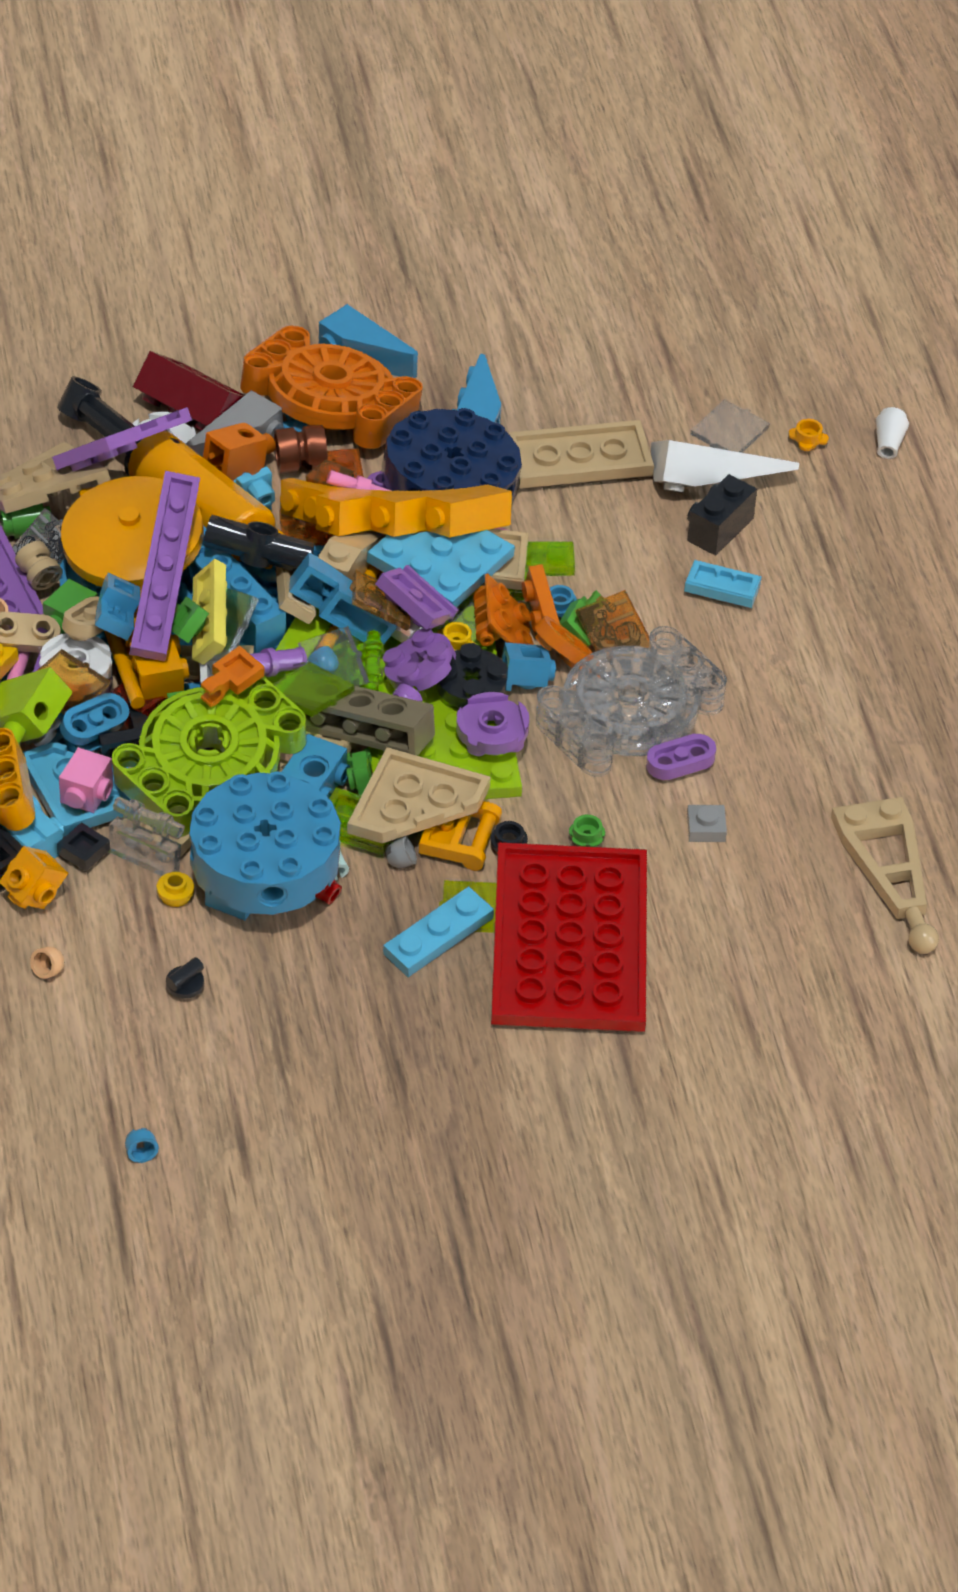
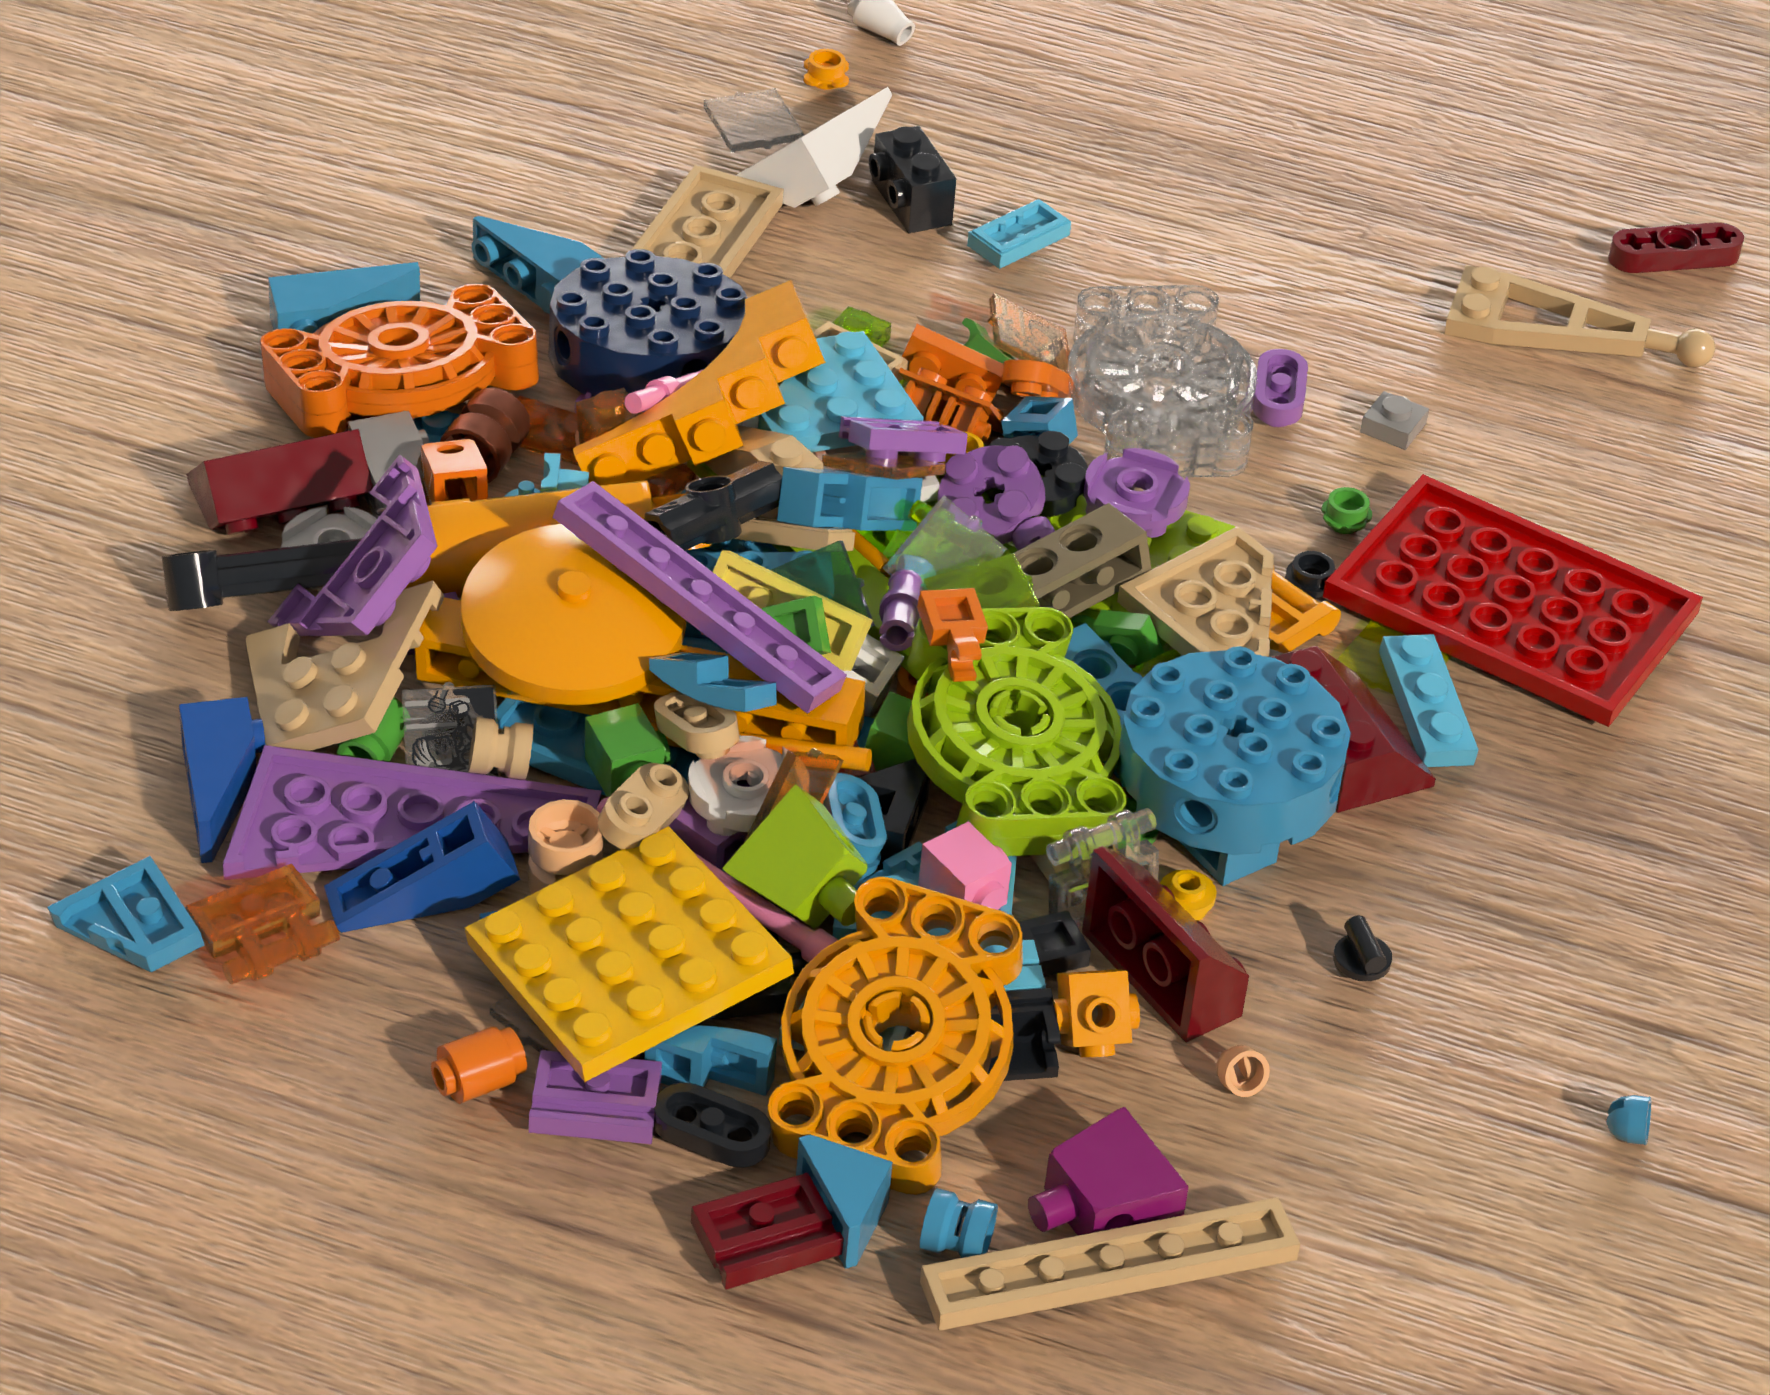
camera: 60 degrees left, 5 degrees down
(108, 884) = (1161, 947): none -> dark red slope
(372, 900) = (1378, 756): none -> dark red slope

